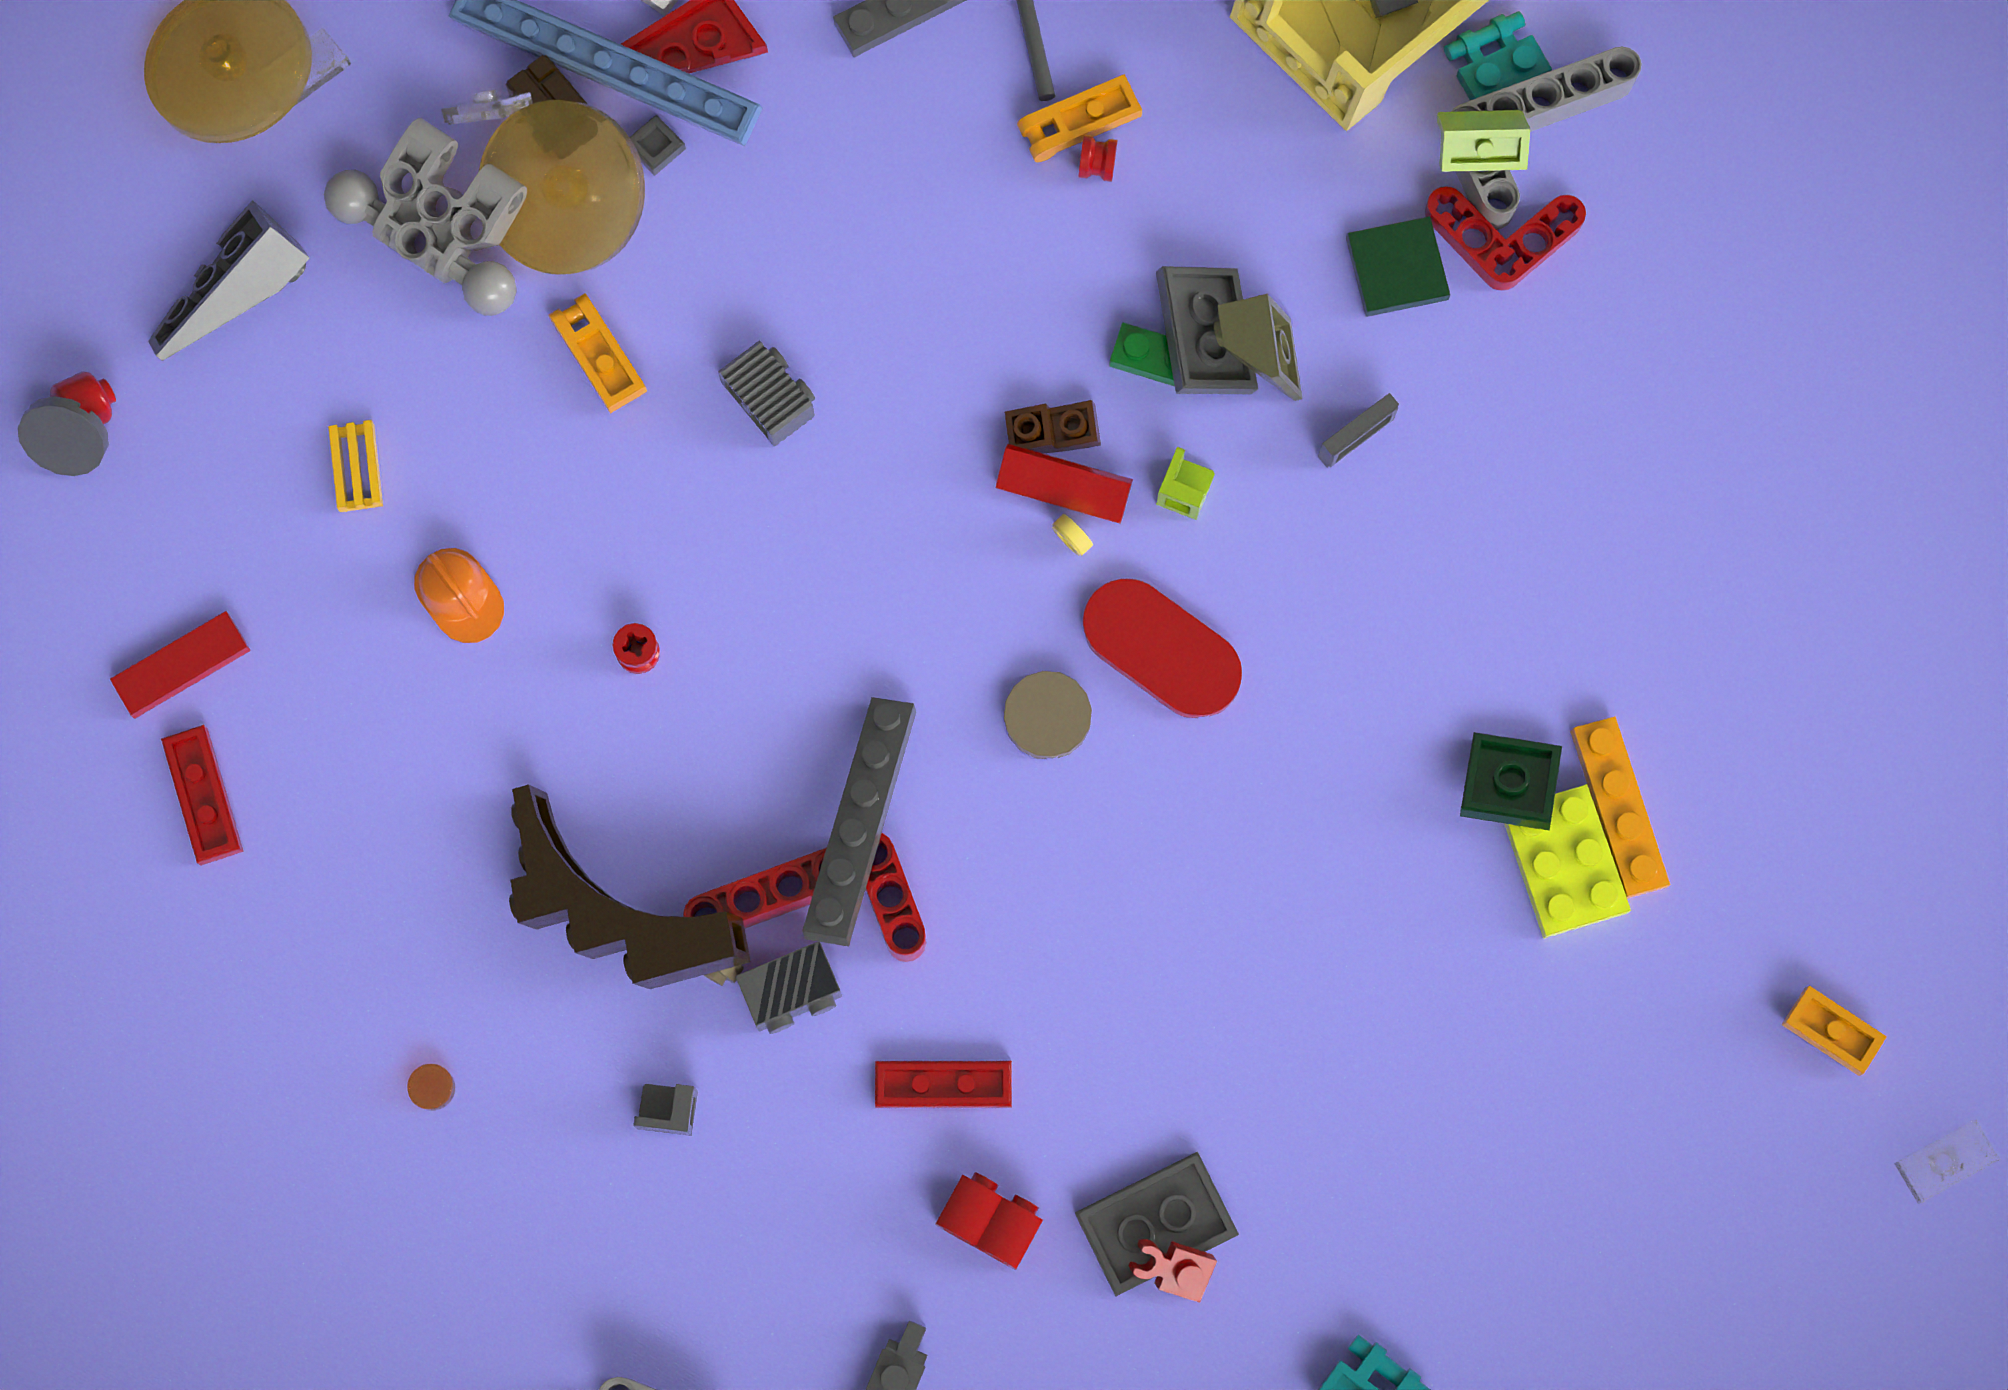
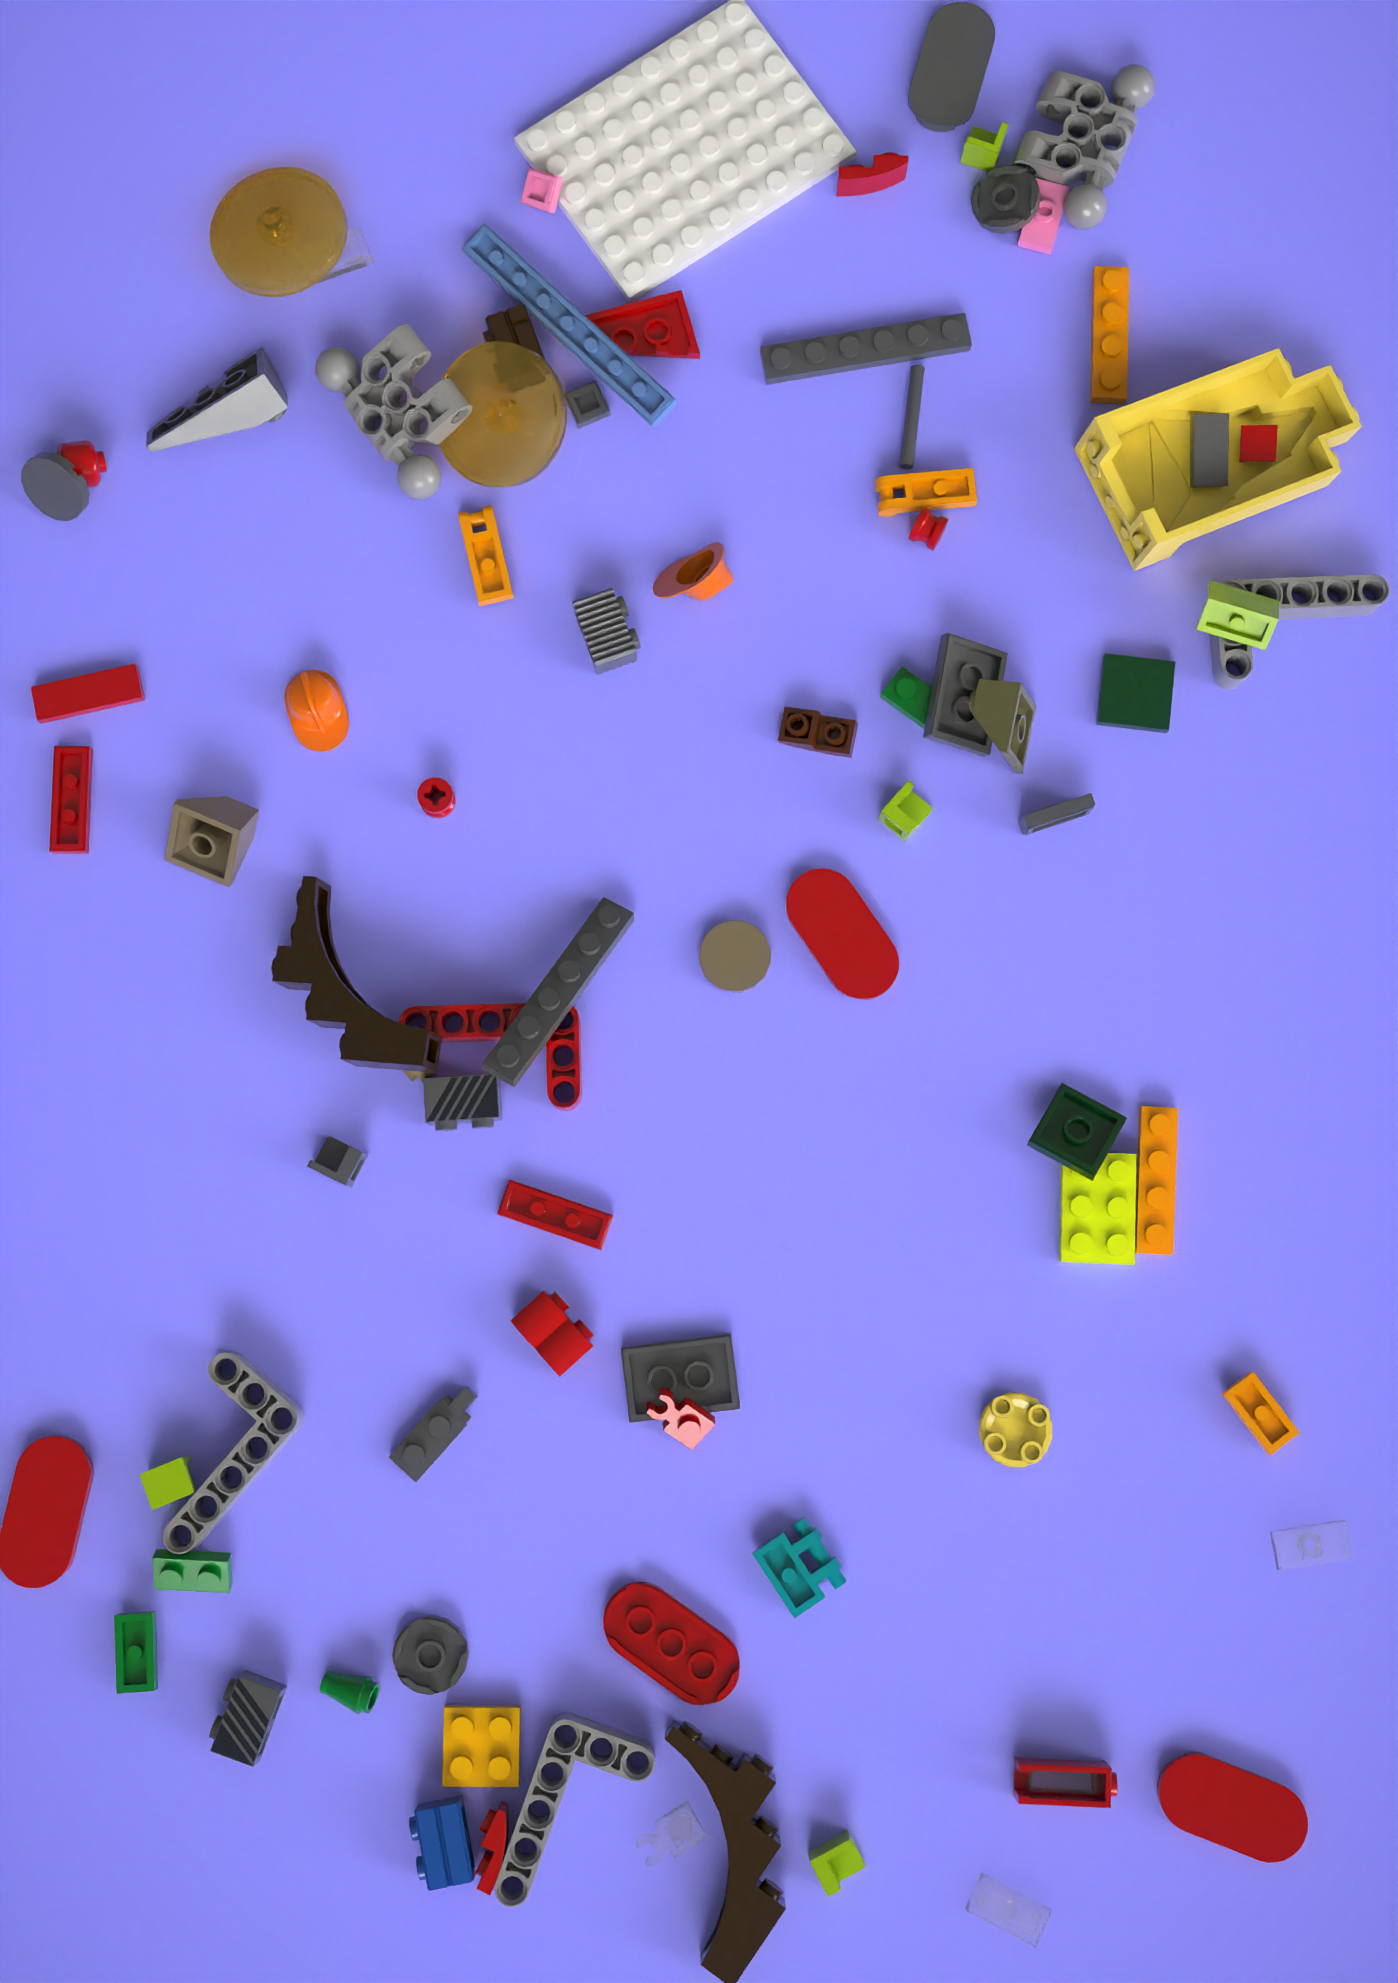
camera: 20 degrees right, 5 degrees up
(351, 431) = (253, 600): yellow tile -> none
(385, 781) = (211, 836): none -> dark tan slope
(431, 1087) = (168, 1082): clear orange tile -> none
(485, 106) = (463, 331): clear plate -> none
(850, 296) = (696, 575): none -> piece
(1064, 483) = (811, 779): red tile -> none
(1072, 535) = (802, 822): light yellow tile -> none
(1498, 248) = (1220, 704): red beam -> none
(1503, 68) = (1277, 561): teal plate -> none
(1564, 1147) = (1015, 1429): none -> light yellow dish

